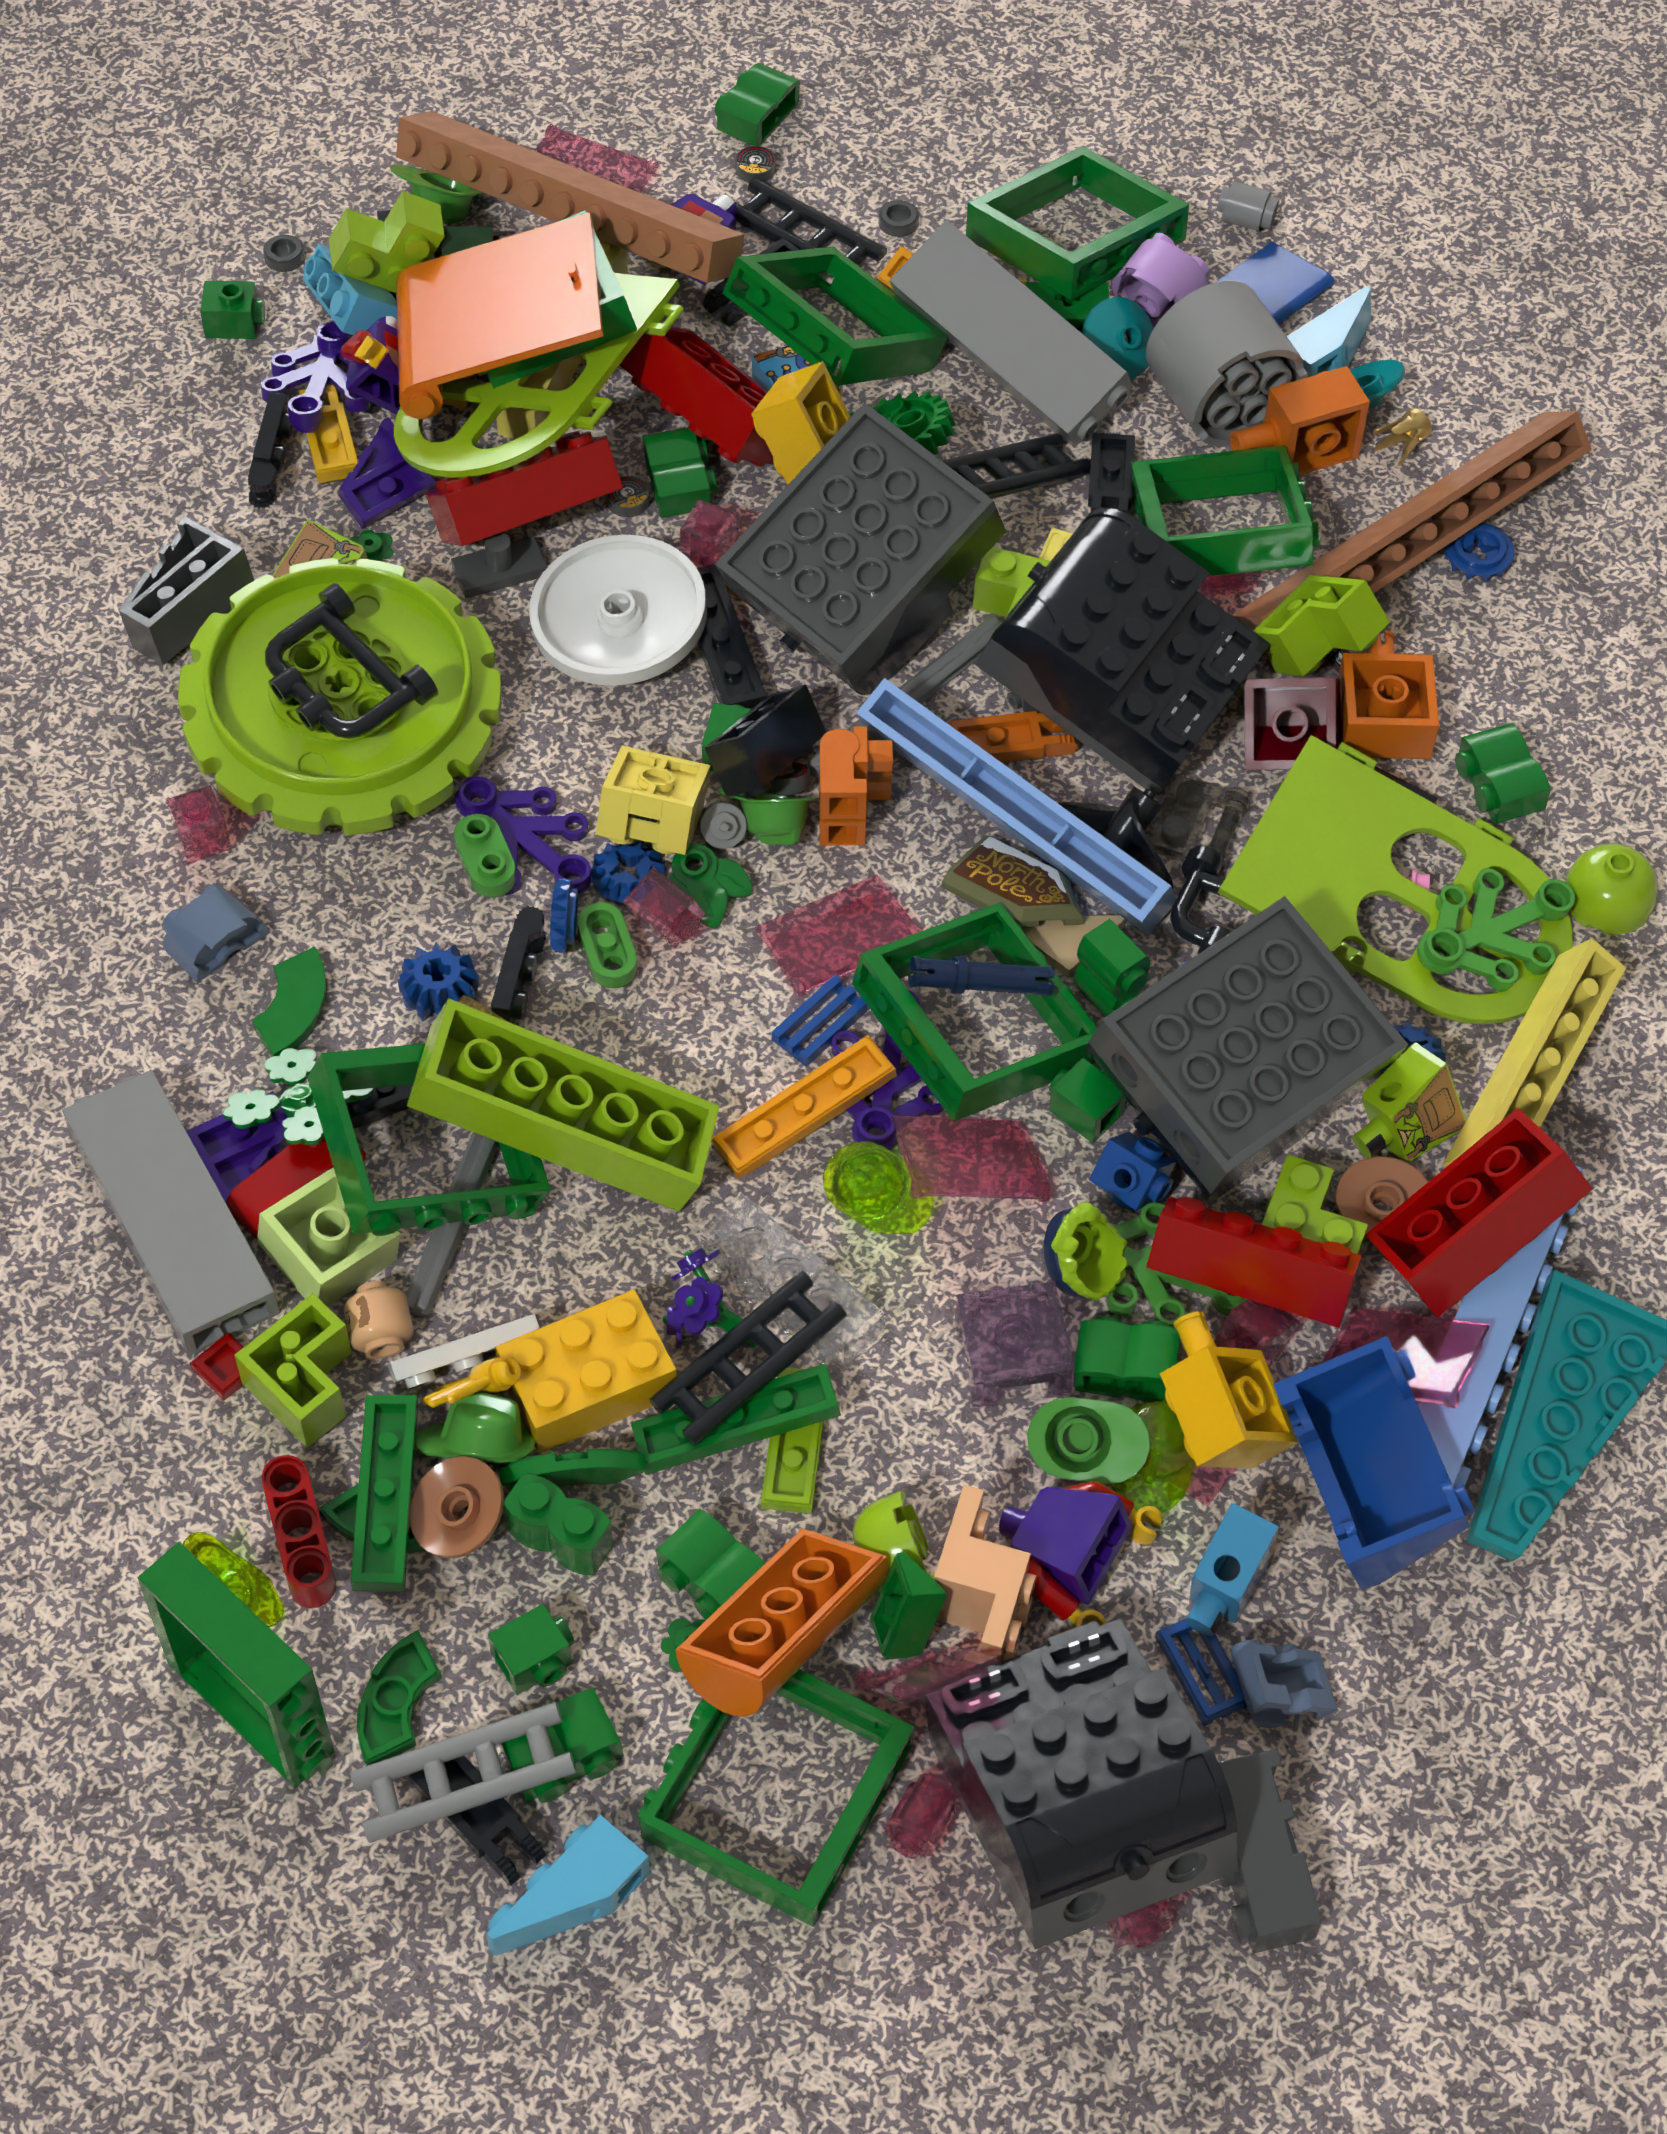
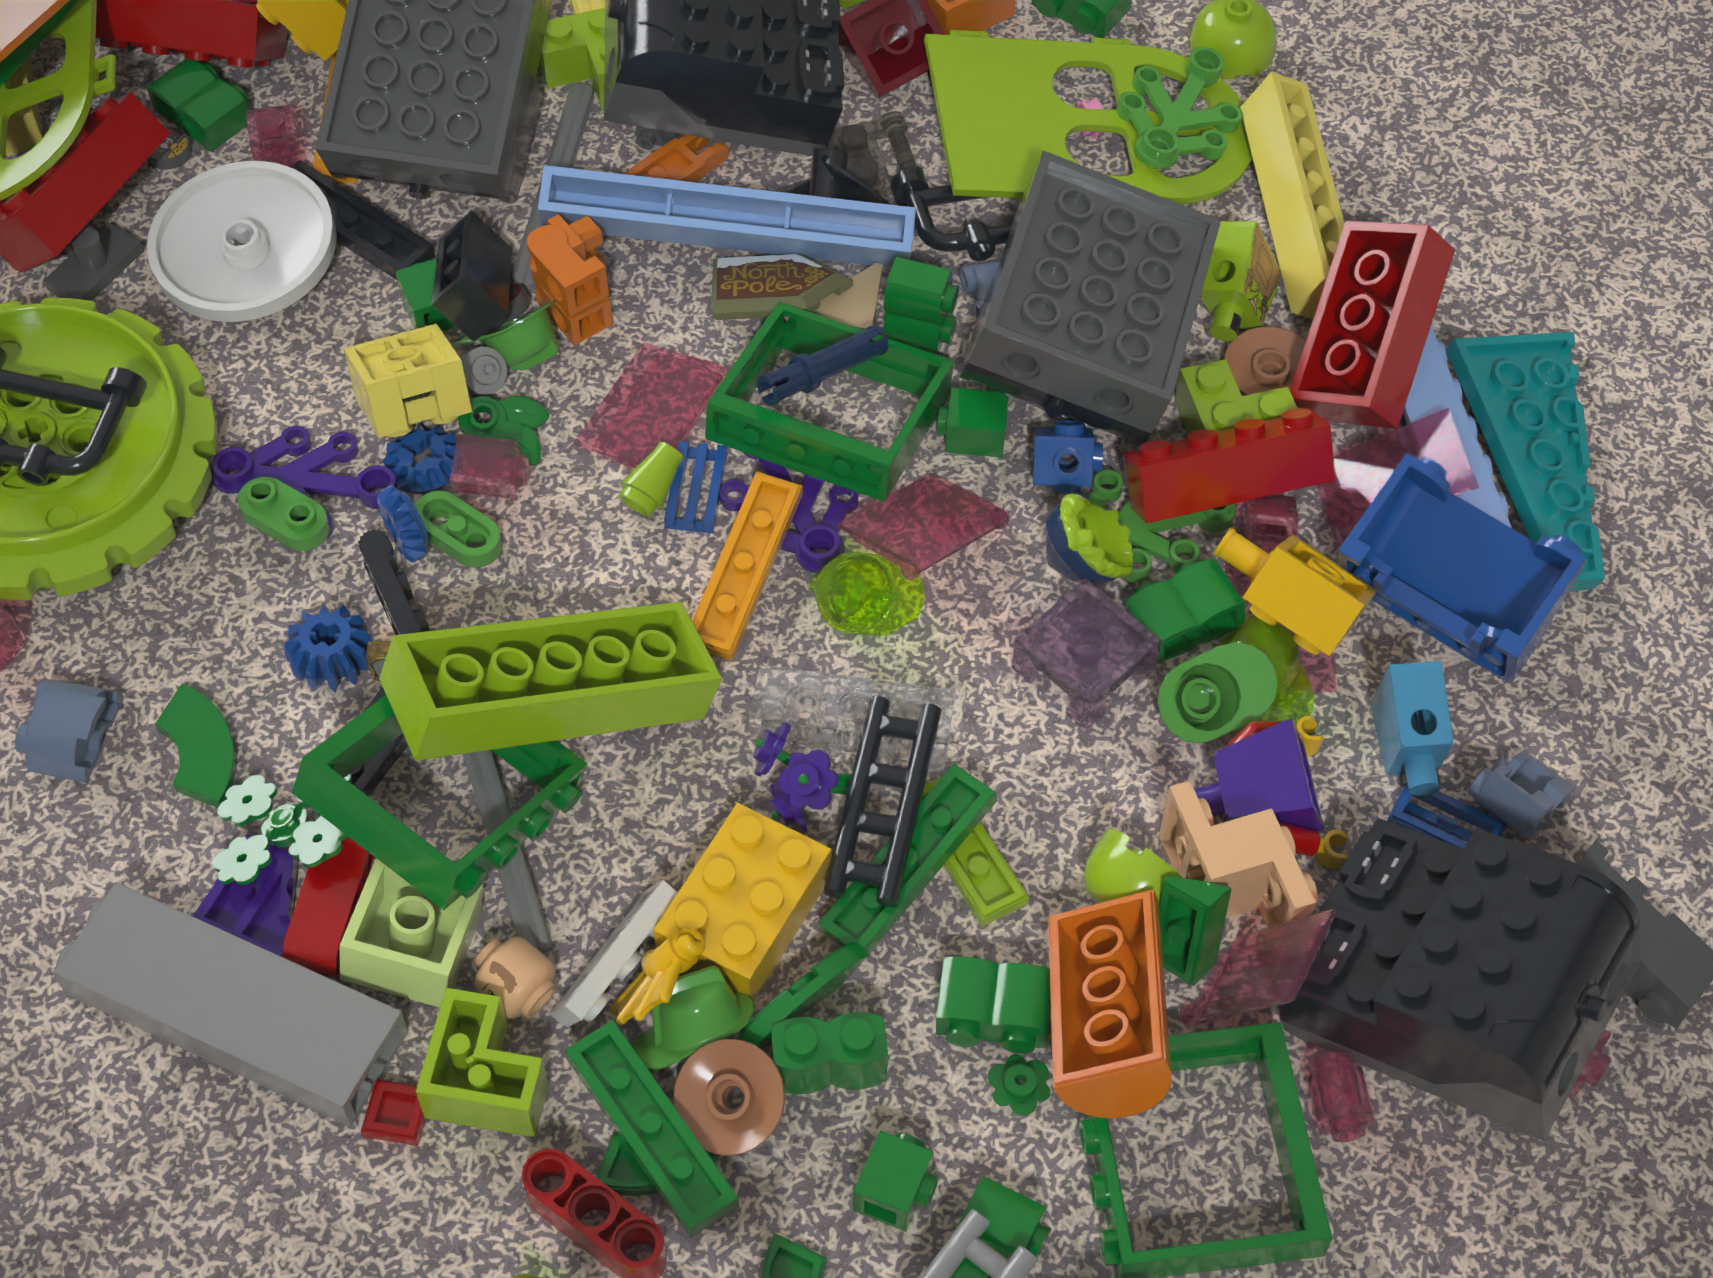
camera: 35 degrees left, 0 degrees up
(784, 993) = (651, 480): none -> lime cone

